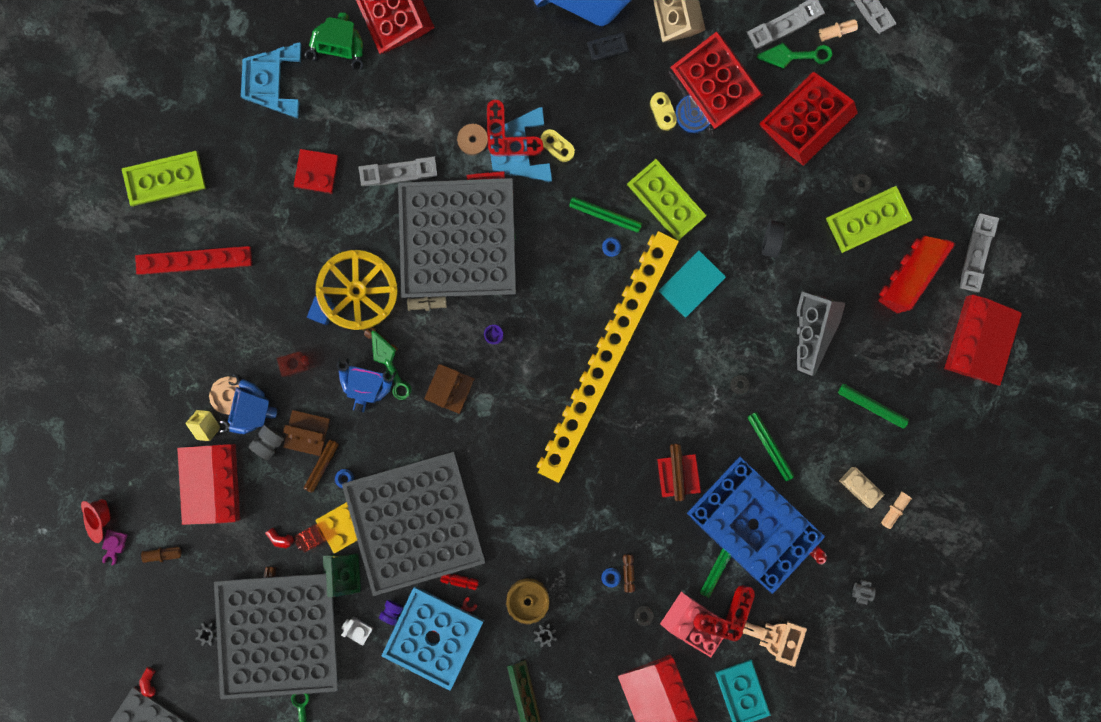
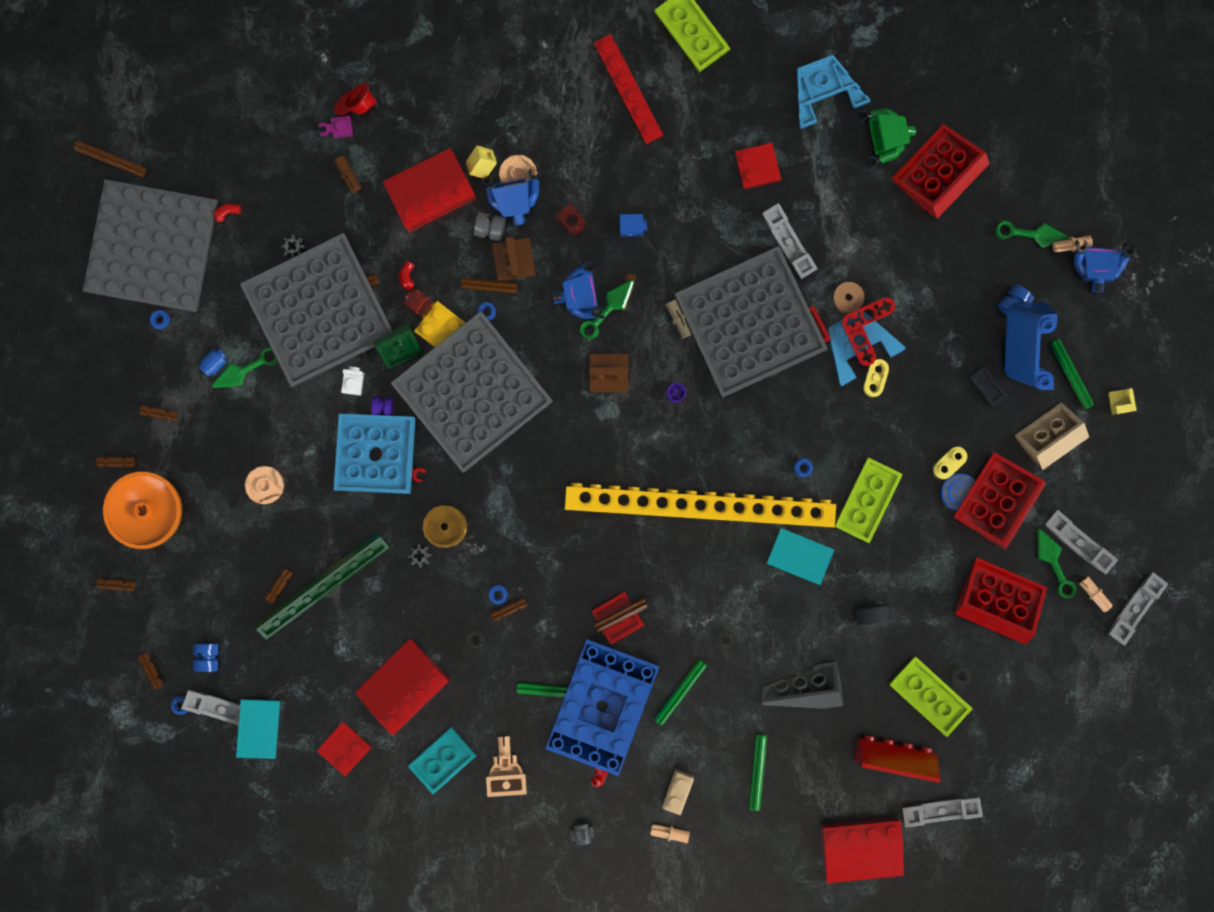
camera: 65 degrees right, 0 degrees up
(356, 285) = (668, 249): yellow wheel -> none
(460, 581) = (437, 458): red axle -> none
(605, 214) = (830, 448): green axle -> none
(680, 623) = (487, 690): coral slope -> none
(732, 621) = (503, 723): red beam -> none

